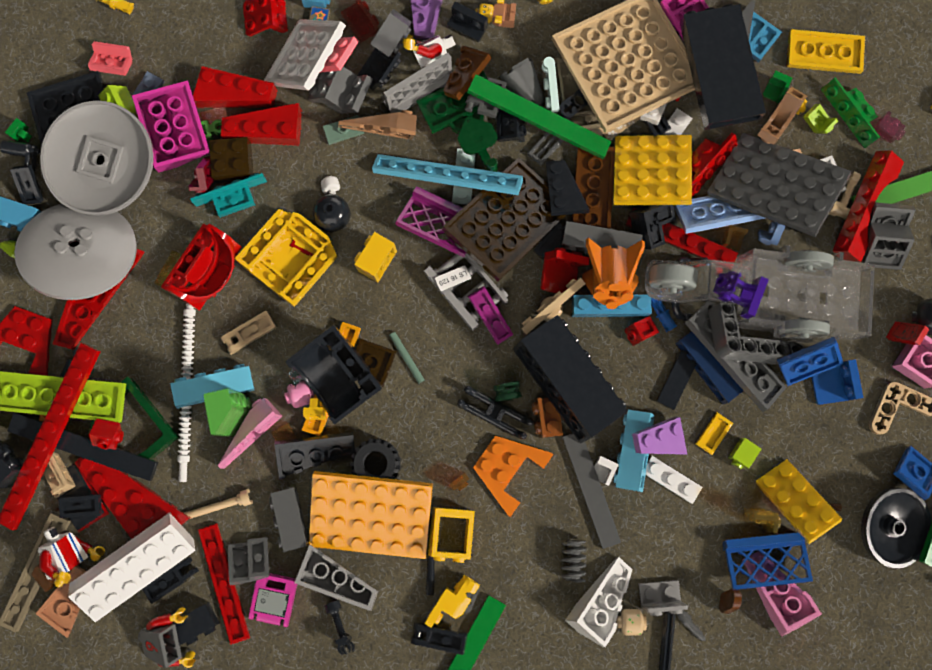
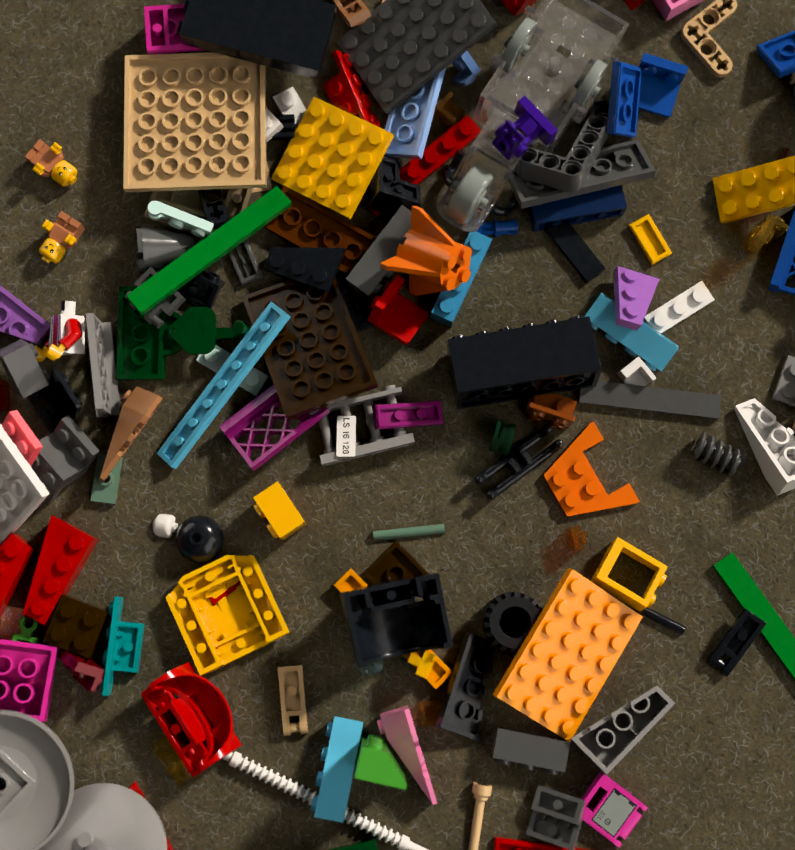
camera: 75 degrees left, 0 degrees up
(298, 394) = (393, 673): bright pink head -> none
(333, 609) = (651, 745): black bar -> none
(456, 601) = (704, 606): yellow plate -> none
(467, 22) = (53, 276): black bracket -> none
(467, 66) = (111, 304): reddish brown wing -> none
(552, 306) = (431, 342): tan plate -> none
(641, 330) = (503, 260): red bracket -> none
(744, 454) = (687, 219): lime brick -> none

